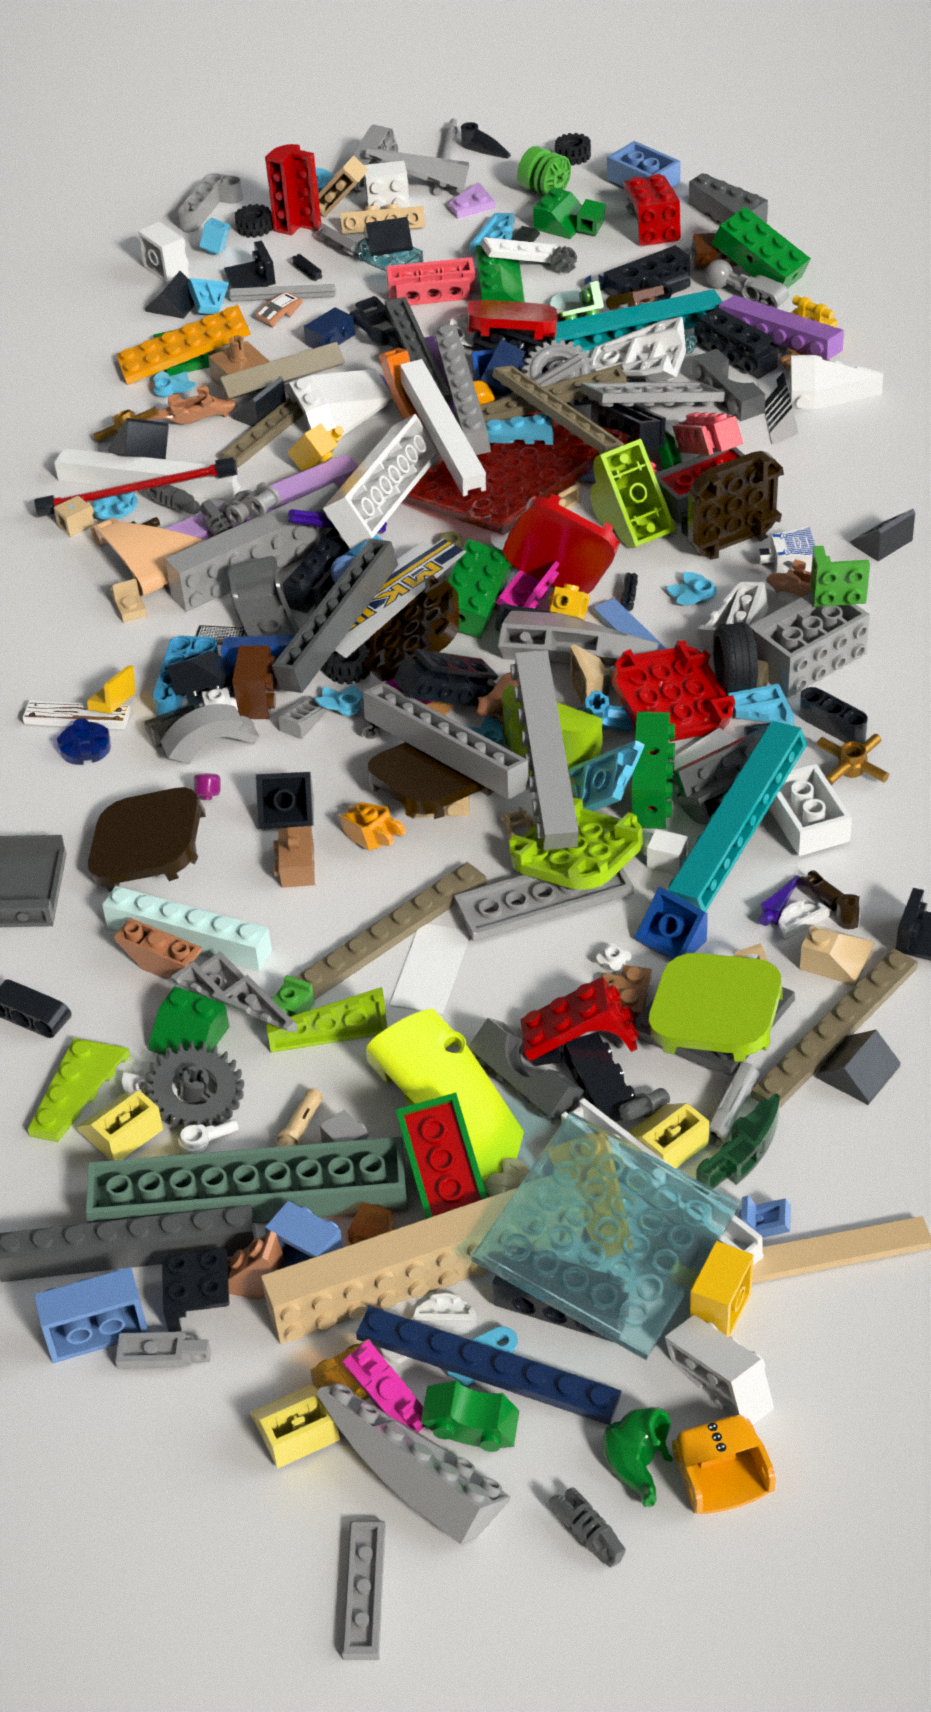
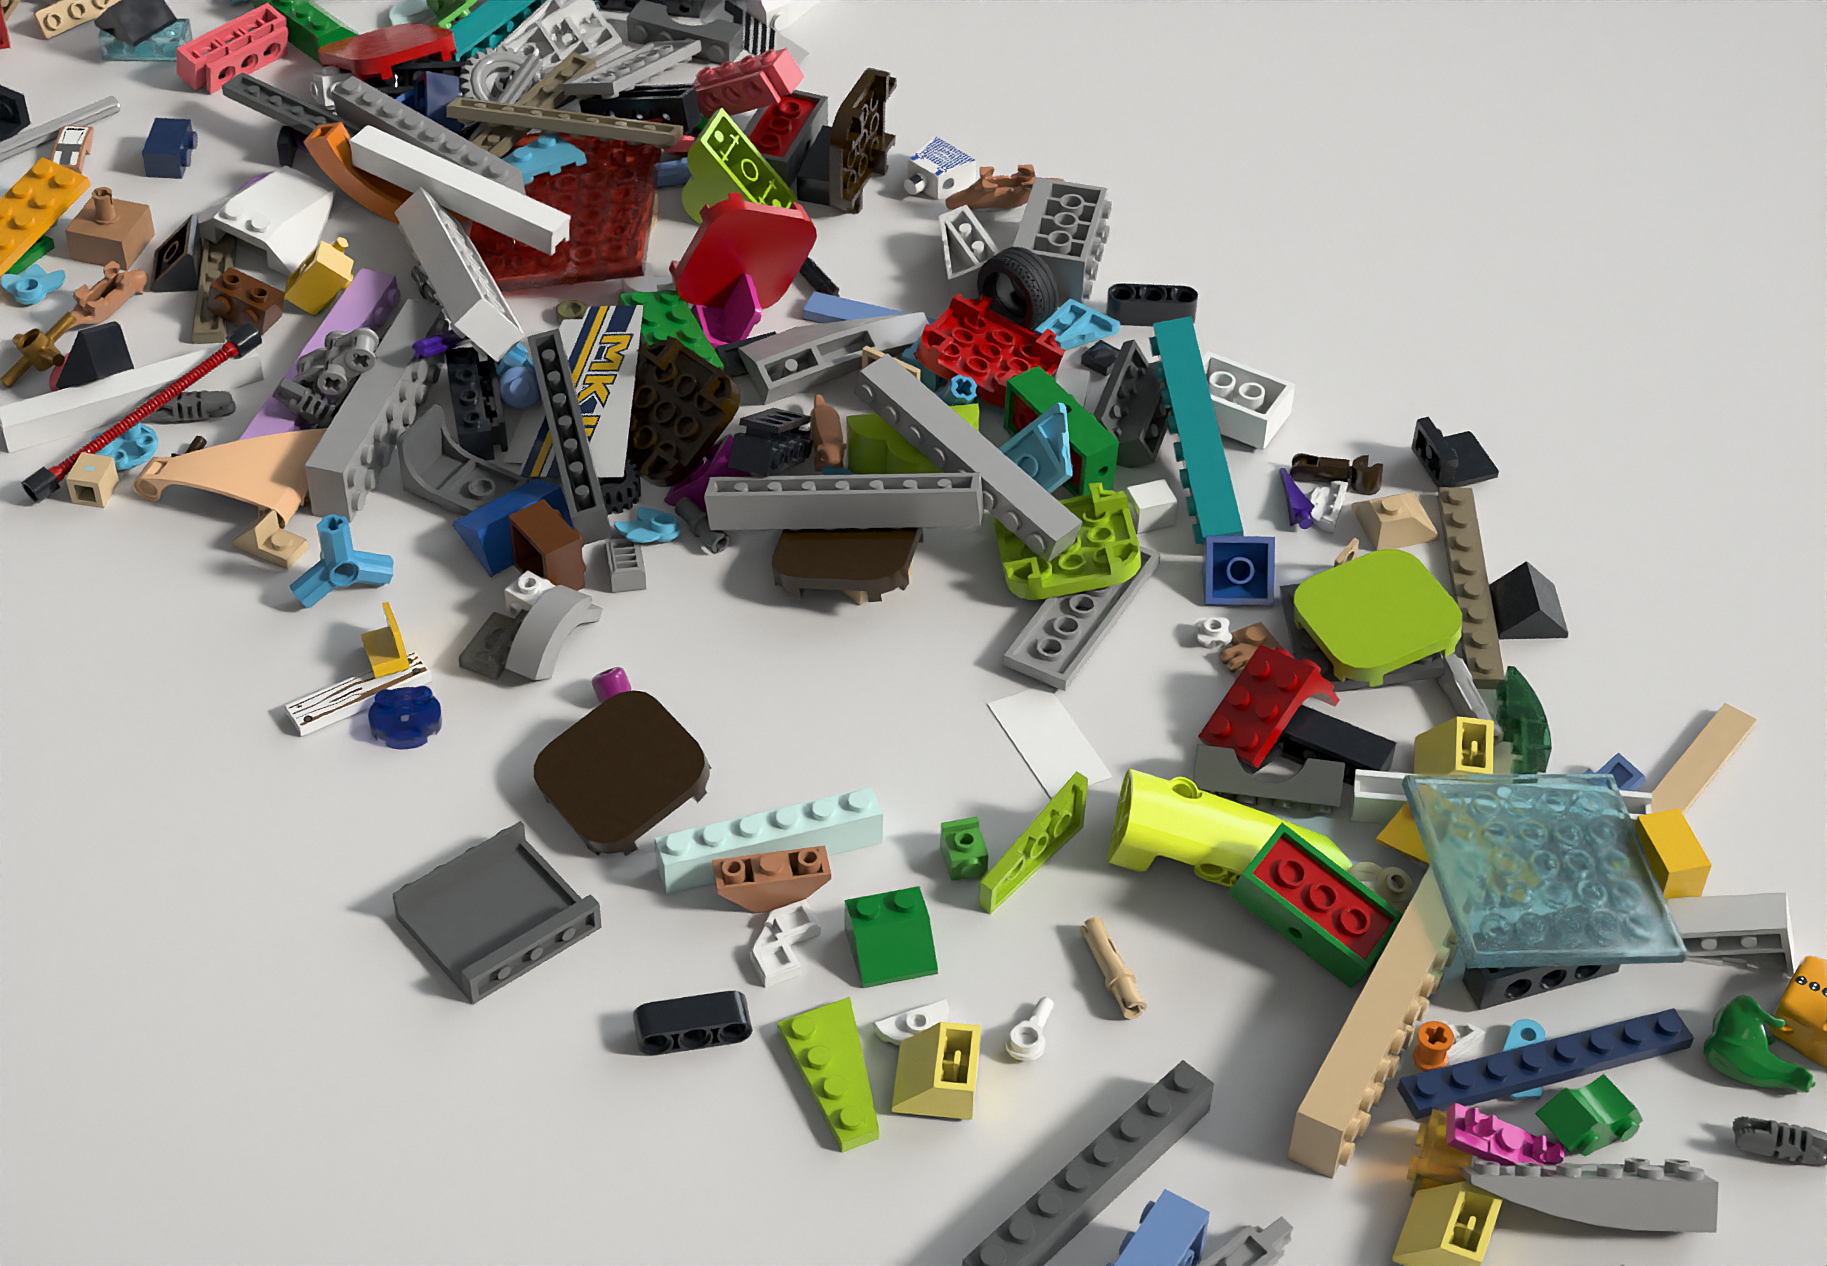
camera: 45 degrees left, 0 degrees up
(120, 998) = (772, 950): none -> white tile
(133, 629) = (340, 564): none -> dark azure piece
(178, 648) = (423, 573): dark azure beam -> none
(192, 1072) = (978, 980): dark grey gear -> none
(193, 1283) = (1212, 1172): black bracket -> none
(200, 673) = (481, 570): black slope -> none
(219, 632) = (421, 528): sticker -> none
(225, 983) = (882, 868): light grey wedge -> none
(252, 1262) = (1244, 1122): nougat slope -> none
(264, 445) = (245, 300): none -> reddish brown brick
(285, 800) = (718, 656): black slope -> none
(288, 368) = (168, 213): tile -> none
(295, 856) = (796, 706): medium nougat brick -> none
(303, 1234) = (1274, 1064): medium blue piece -> none
(307, 267) = (50, 90): black axle -> none
(320, 1176) = (1171, 1020): sand green brick -> none
(337, 239) = (57, 45): light grey hinge -> none
(342, 1128) = (1174, 946): light grey brick -> none
(369, 1223) = (1301, 1014): clear orange brick -> none
(370, 825) = (840, 633): light orange hinge -> none
(372, 318) = (206, 108): black bar -> none
(391, 930) = (972, 721): dark tan plate -> none
(414, 1303) = (1434, 1042): none -> orange bush
(526, 819) = (975, 548): tan piece -> none
(569, 601) = (789, 308): yellow brick -> none
(644, 1104) = (1407, 744): dark grey axle -> none
(693, 589) = (878, 248): medium azure plate -> none
(838, 581) = (1061, 169): bright green bracket -> none
(853, 759) = (1216, 333): pearl gold bar -> none
(887, 536) = (1002, 115): black slope -> none

